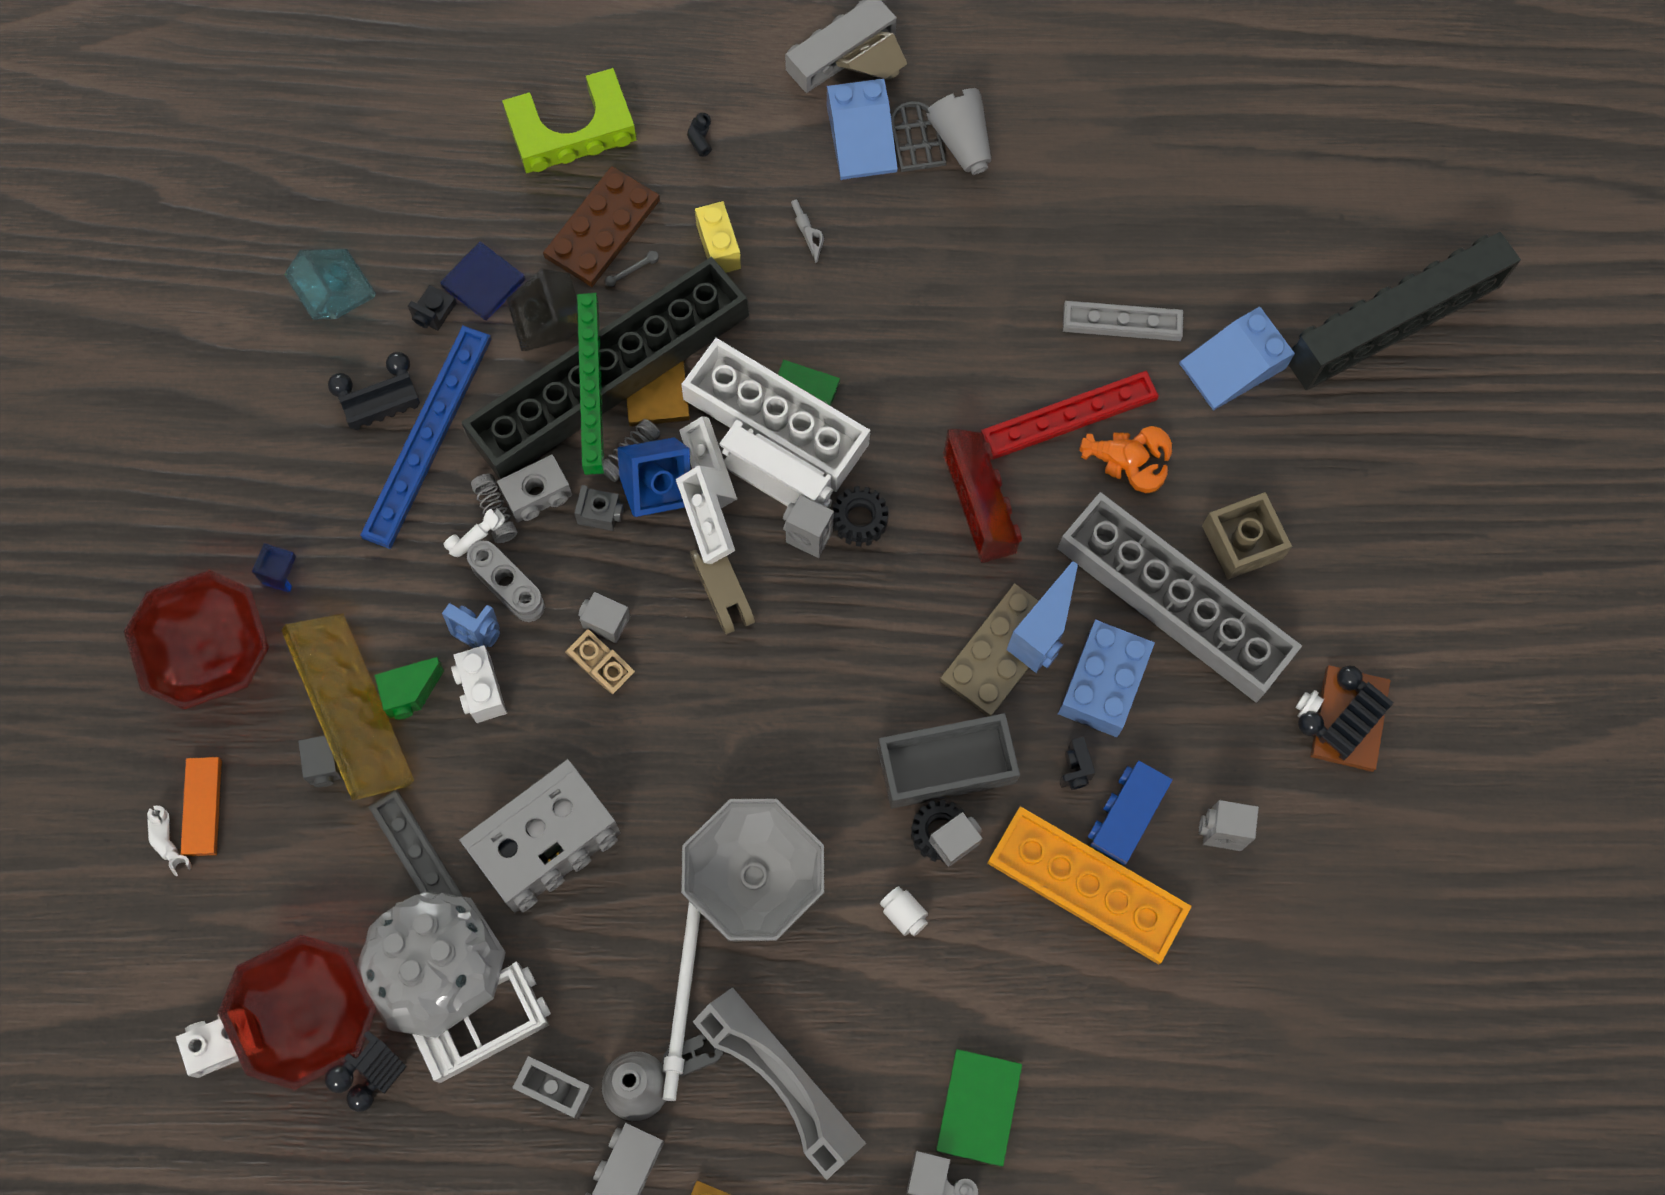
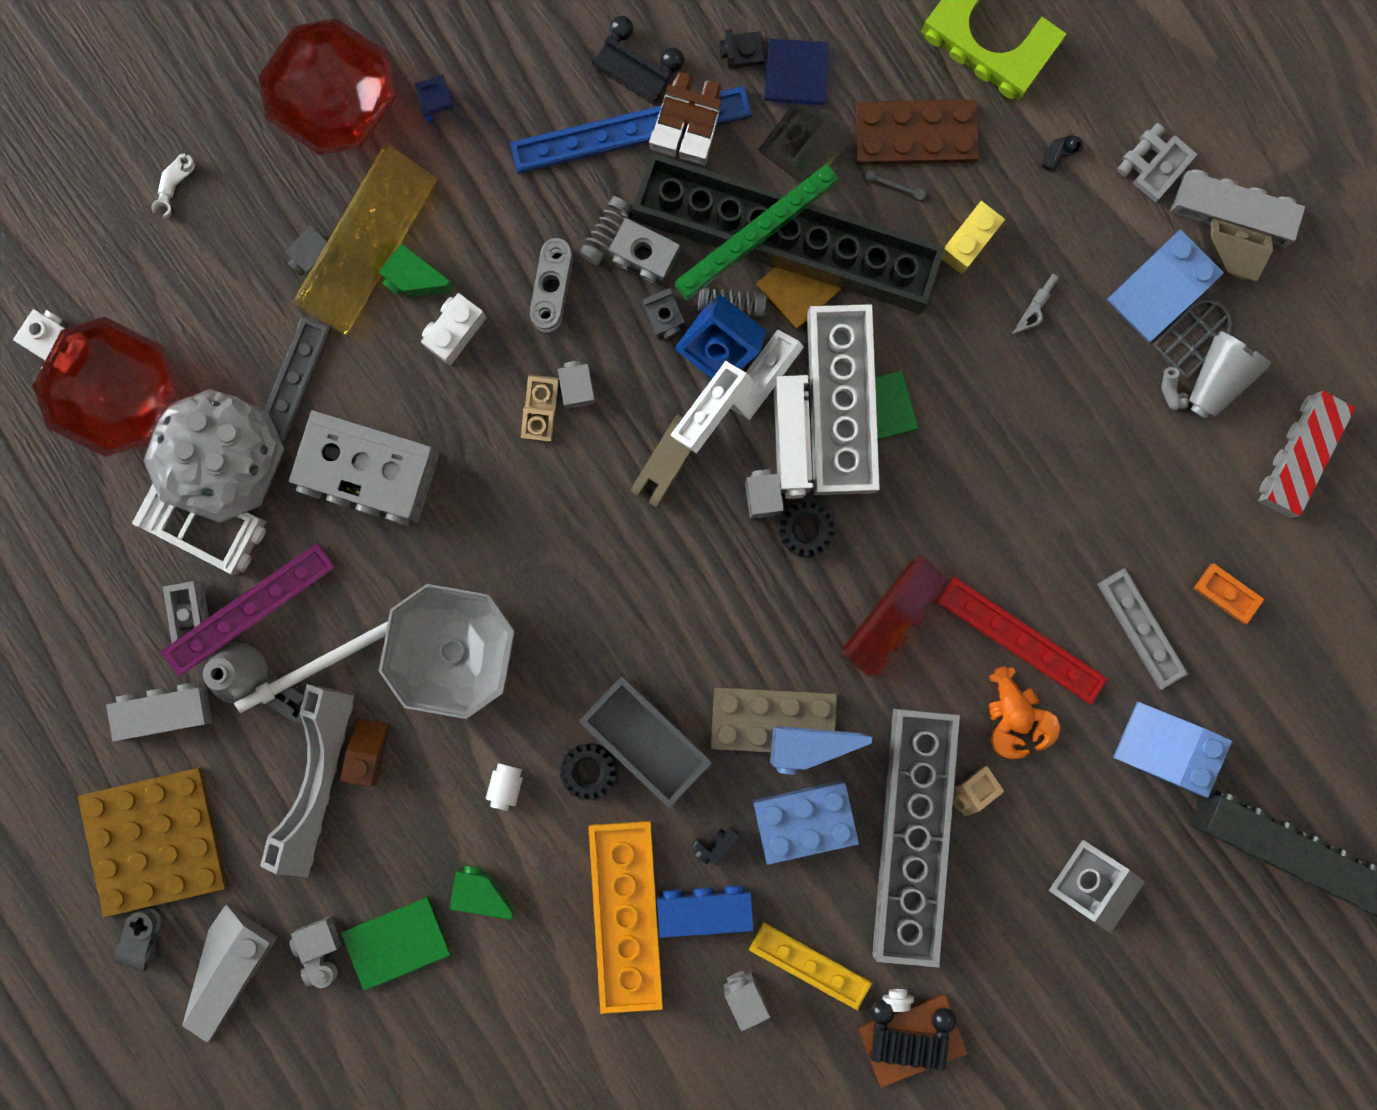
camera: 55 degrees right, 15 degrees up
(201, 806) = (215, 189): orange tile -> none
(375, 1064) = (93, 470): black gear -> none
(450, 373) = (691, 110): none -> hips
(459, 547) = (569, 234): white arm -> none
(469, 630) = (490, 290): medium blue bracket -> none
(589, 1029) = (247, 610): none -> magenta tile
(770, 74) = (1163, 169): none -> light grey plate
(790, 1014) = (365, 753): none -> reddish brown slope
(947, 179) = (1169, 388): none -> light grey arm
(956, 838) = (583, 792): light grey brick -> none
(984, 998) = (479, 894): none -> green slope
(1067, 117) = (1306, 454): none -> light grey brick
(1138, 240) = (1228, 594): none -> orange plate
(1173, 526) = (976, 792): none -> tan bracket
(1232, 759) = (810, 965): none -> yellow tile
(1246, 535) = (1010, 859): dark tan brick -> none
(1312, 486) = (1096, 886): none -> light grey slope

